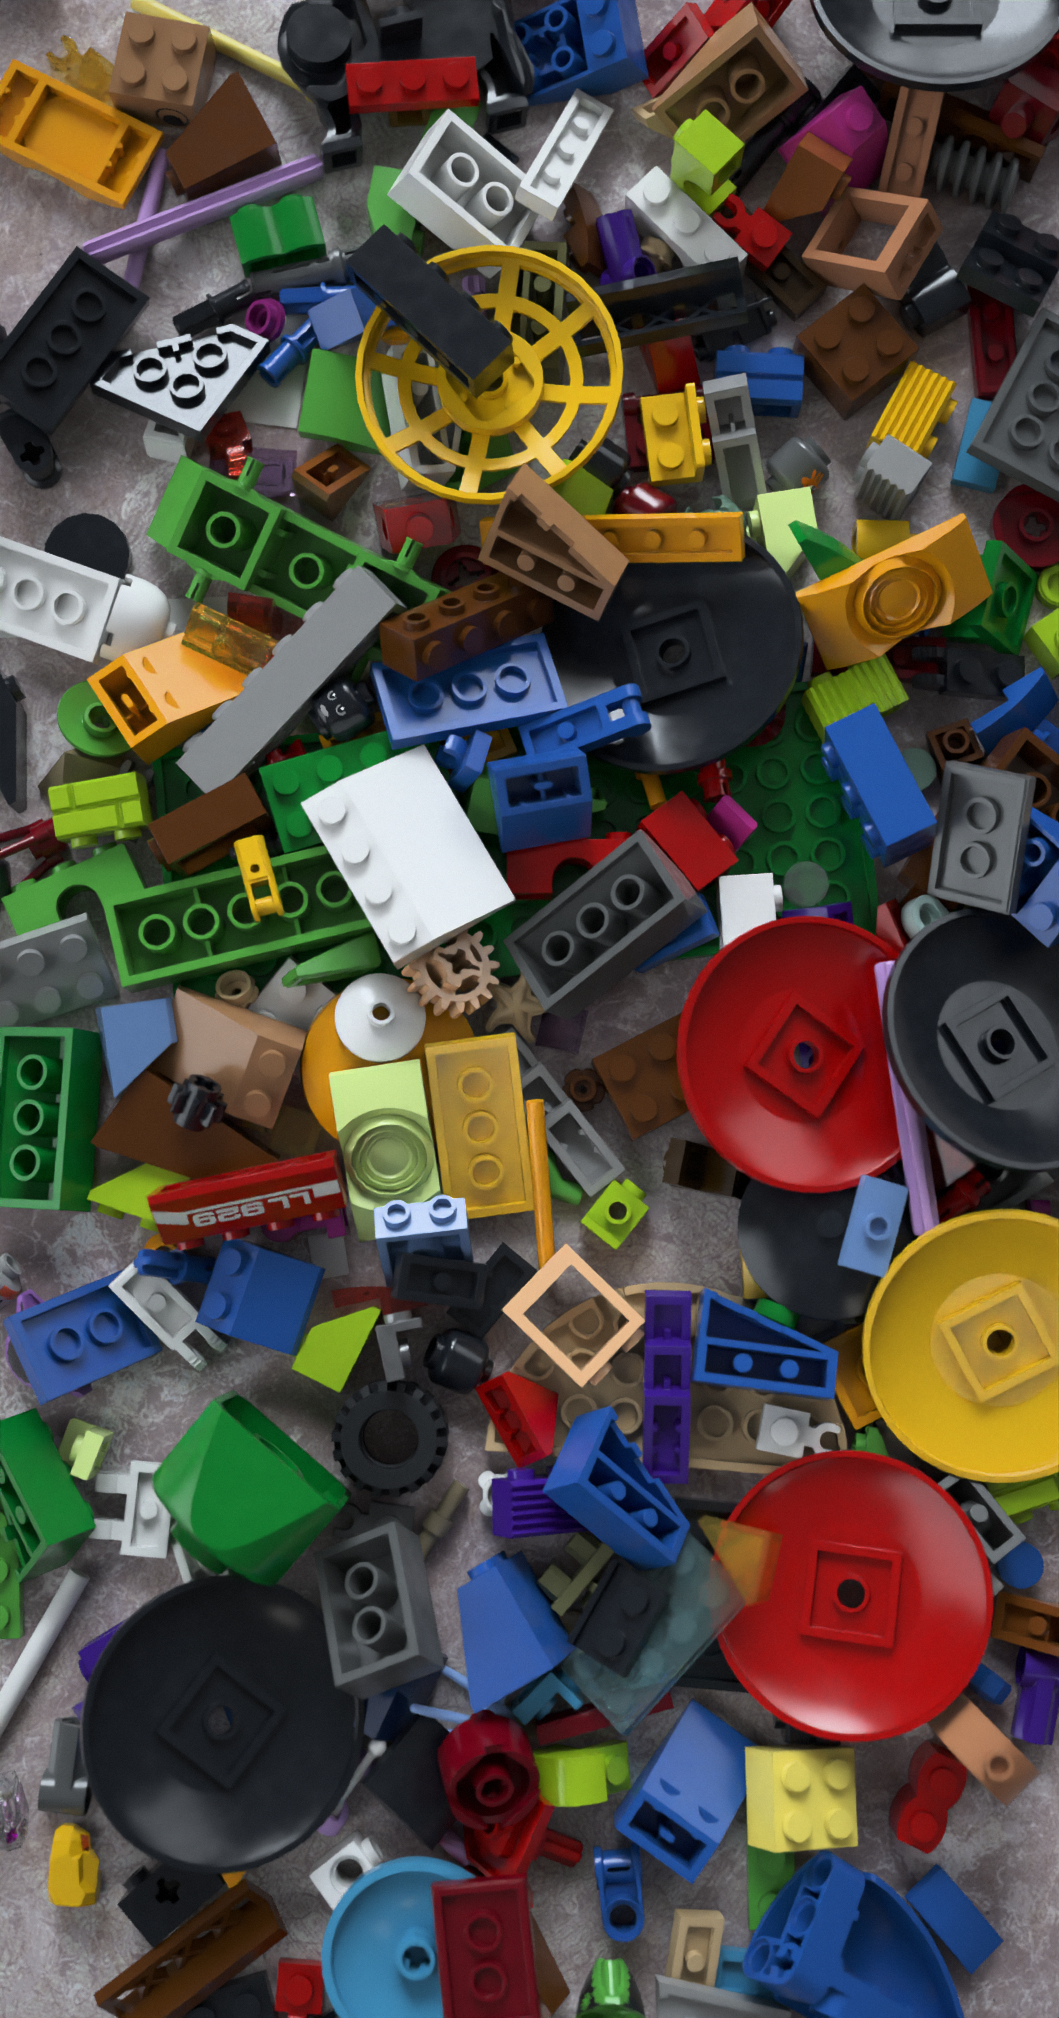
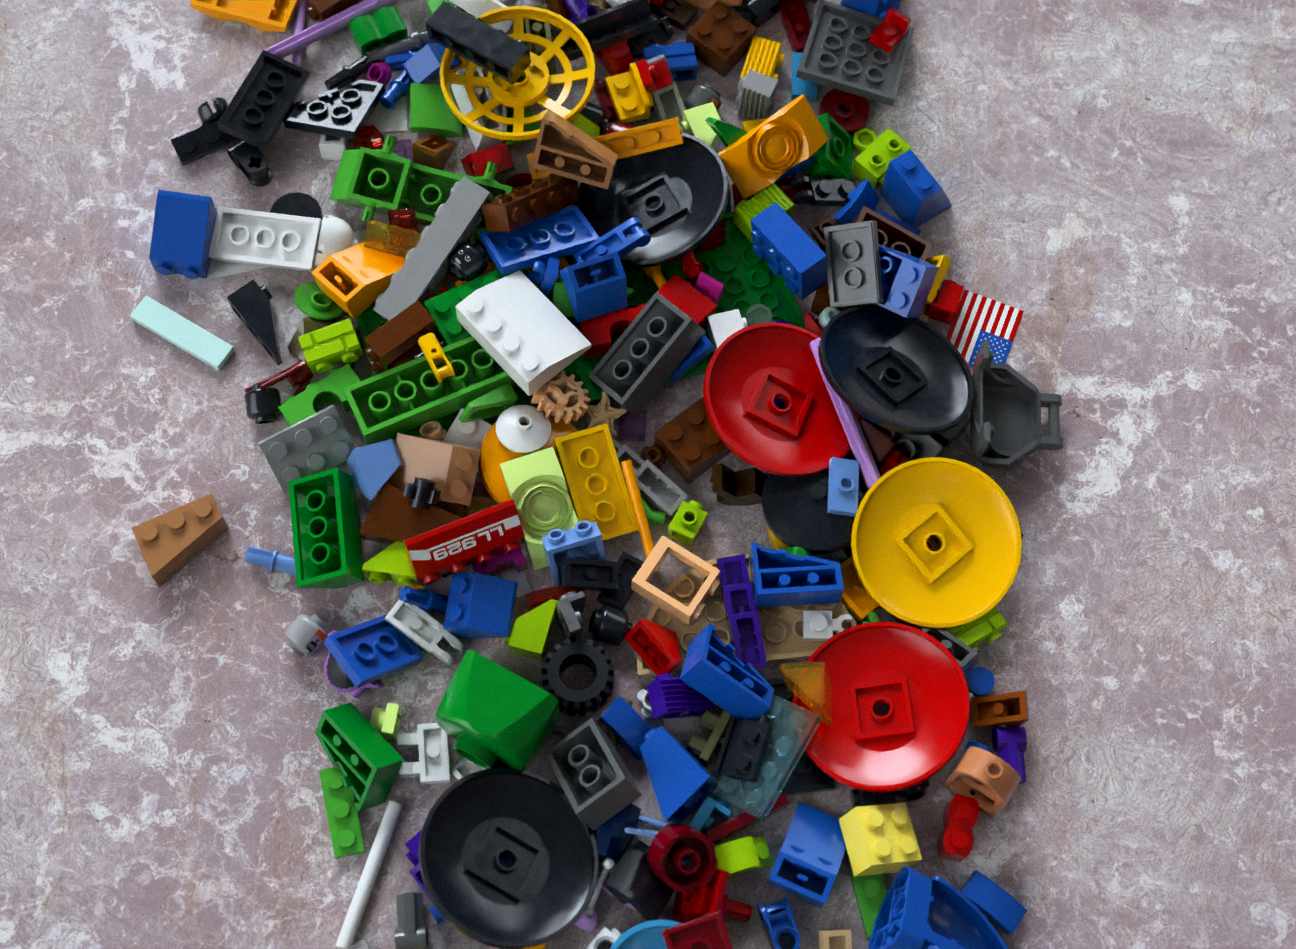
camera: 20 degrees left, 15 degrees down
(451, 1533) = (626, 725): none -> blue slope
(721, 418) = (655, 75): none -> red bracket

